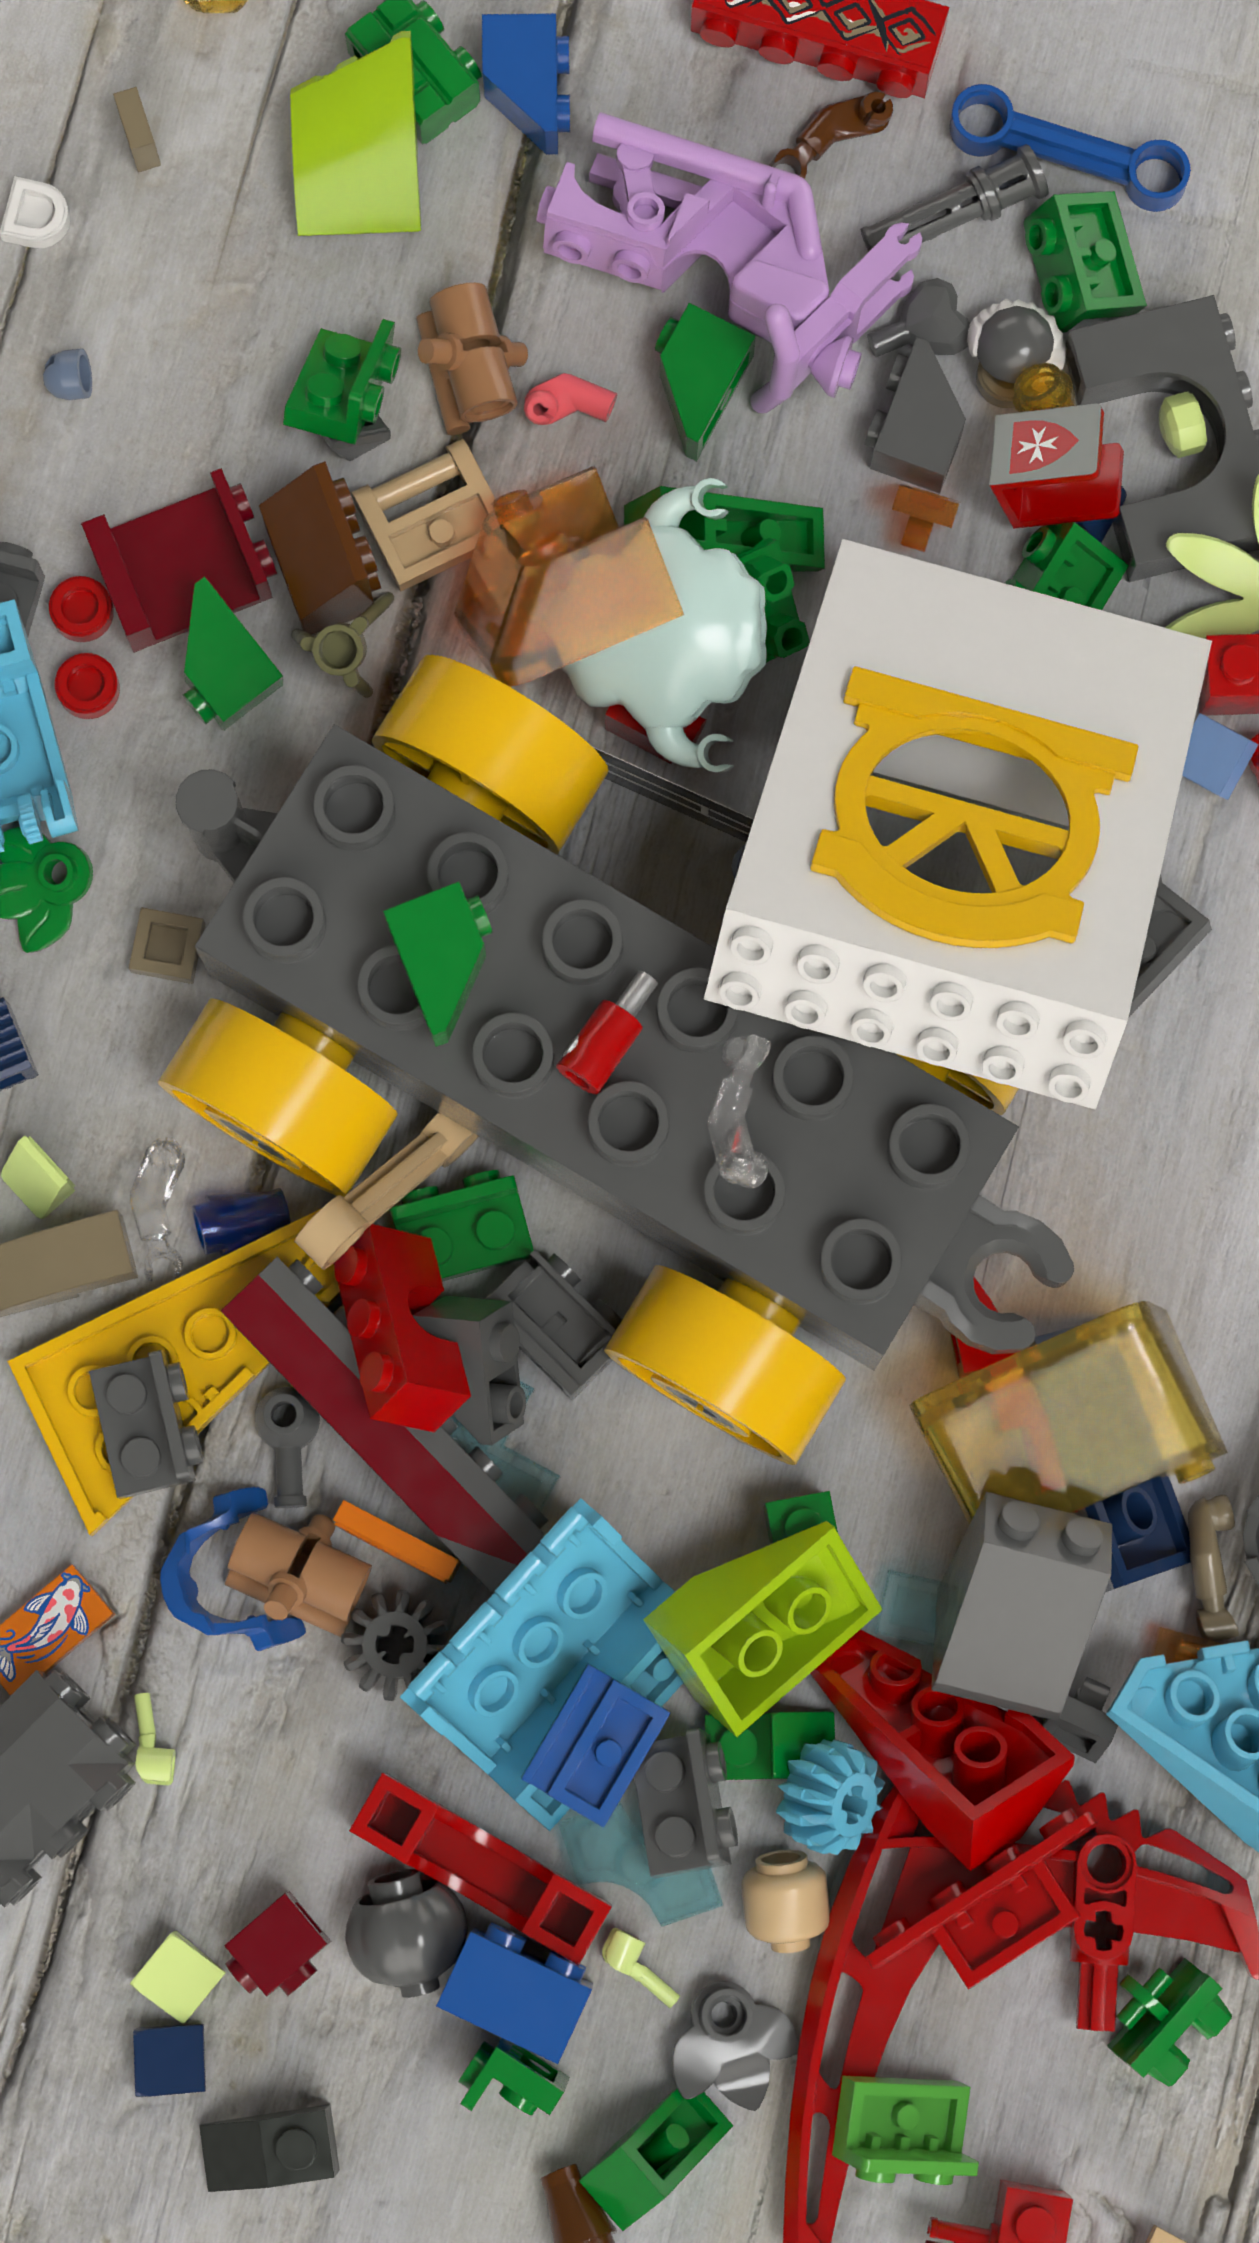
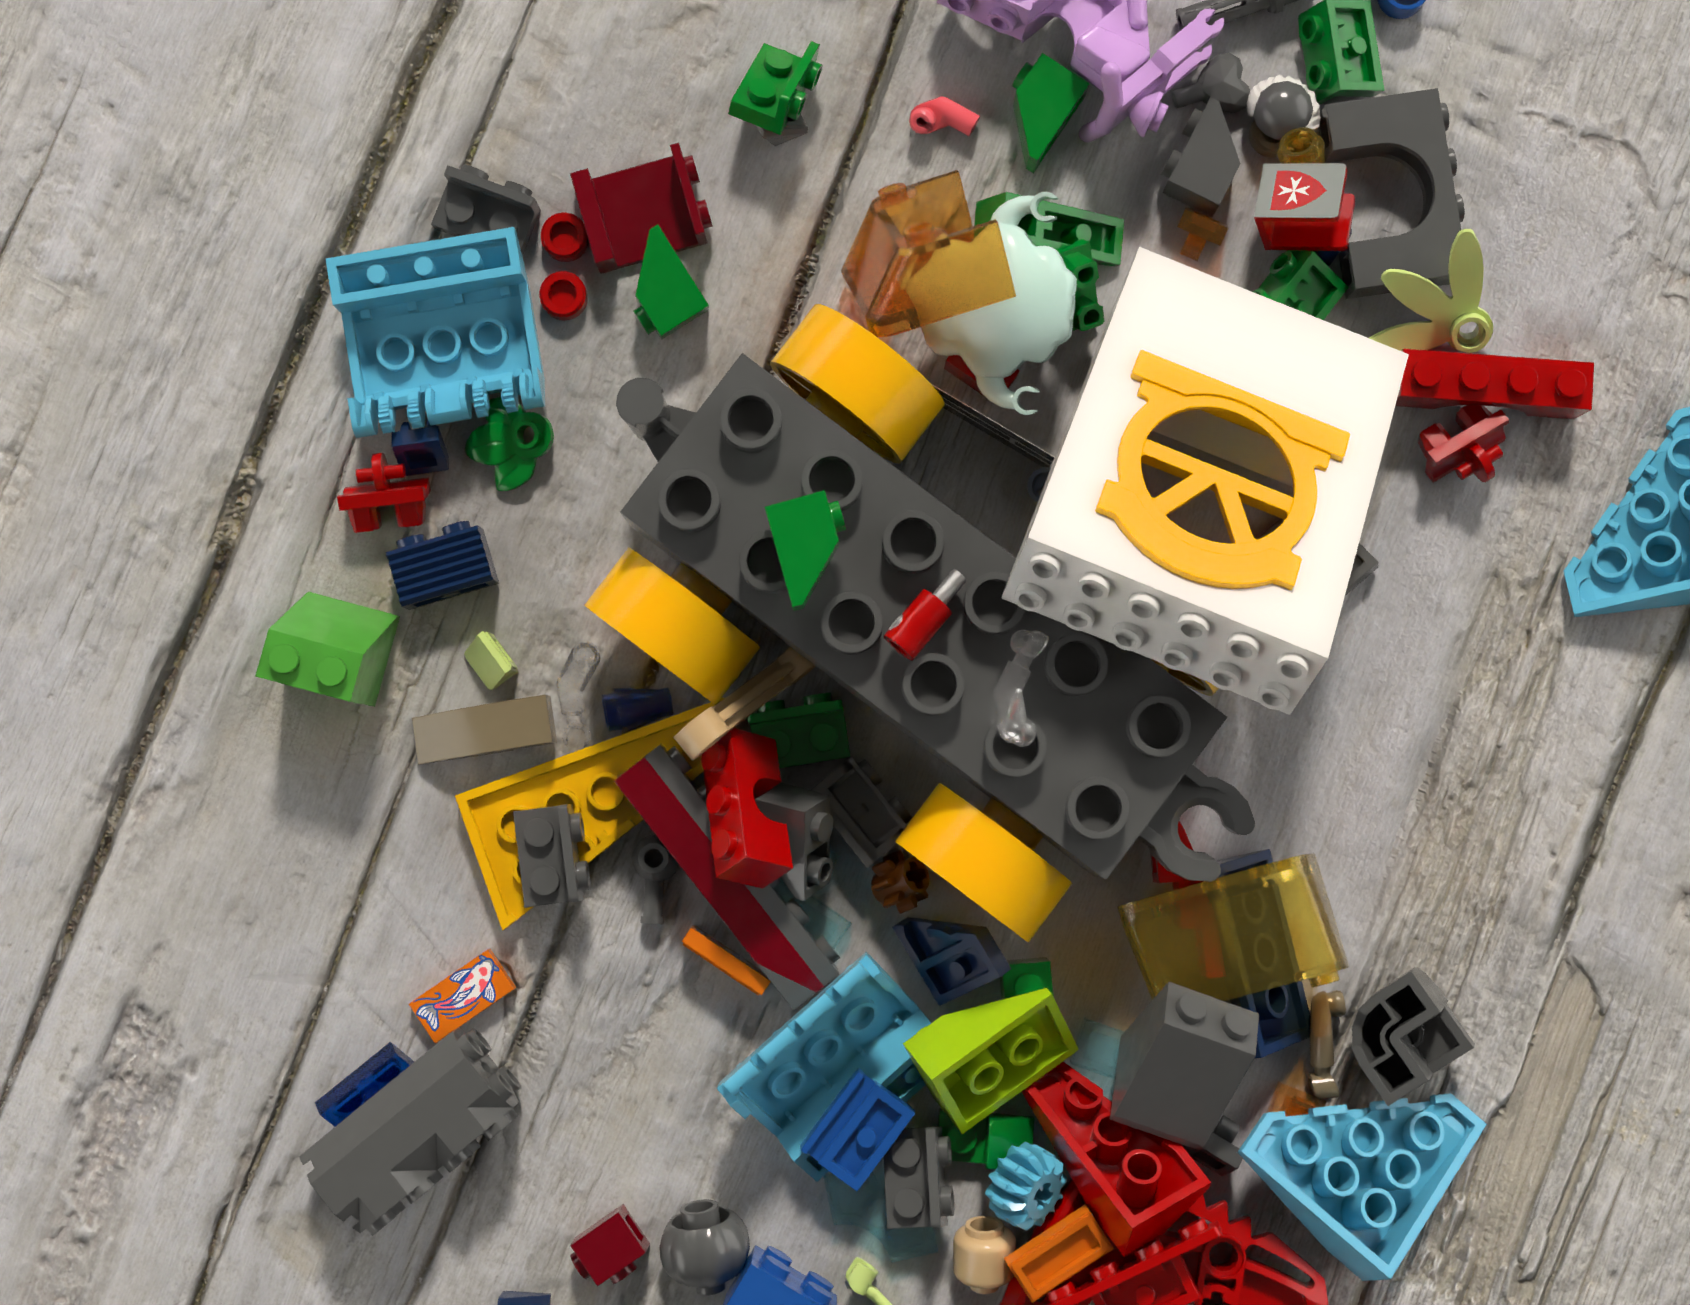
camera: 10 degrees right, 5 degrees up
(69, 375) = (572, 59): sand blue hinge -> none
(152, 1763) = (532, 1101): yellowish green hand -> none
(166, 945) = (602, 497): dark tan tile -> none
(178, 1977) = (535, 1259): yellowish green slope -> none
(182, 1591) = (565, 976): blue helmet -> none
(297, 1572) = (652, 974): medium nougat pin -> none
(315, 547) = (743, 212): reddish brown slope -> none
(343, 647) = (755, 288): olive plant -> none
(383, 1627) = (708, 1022): dark grey gear -> none
(436, 533) = (835, 207): tan plate -> none
(468, 357) = (871, 76): medium nougat pin -> none
(481, 1867) = (787, 1222): red arch -> none
(618, 1411) = (900, 881): none -> reddish brown gear
(697, 1502) = (951, 955): none -> dark blue wing
(884, 1881) = (1058, 1253): none -> orange tile
(1182, 424) = (1401, 184): yellowish green tile -> none
(1217, 756) = (1403, 441): medium blue tile -> none

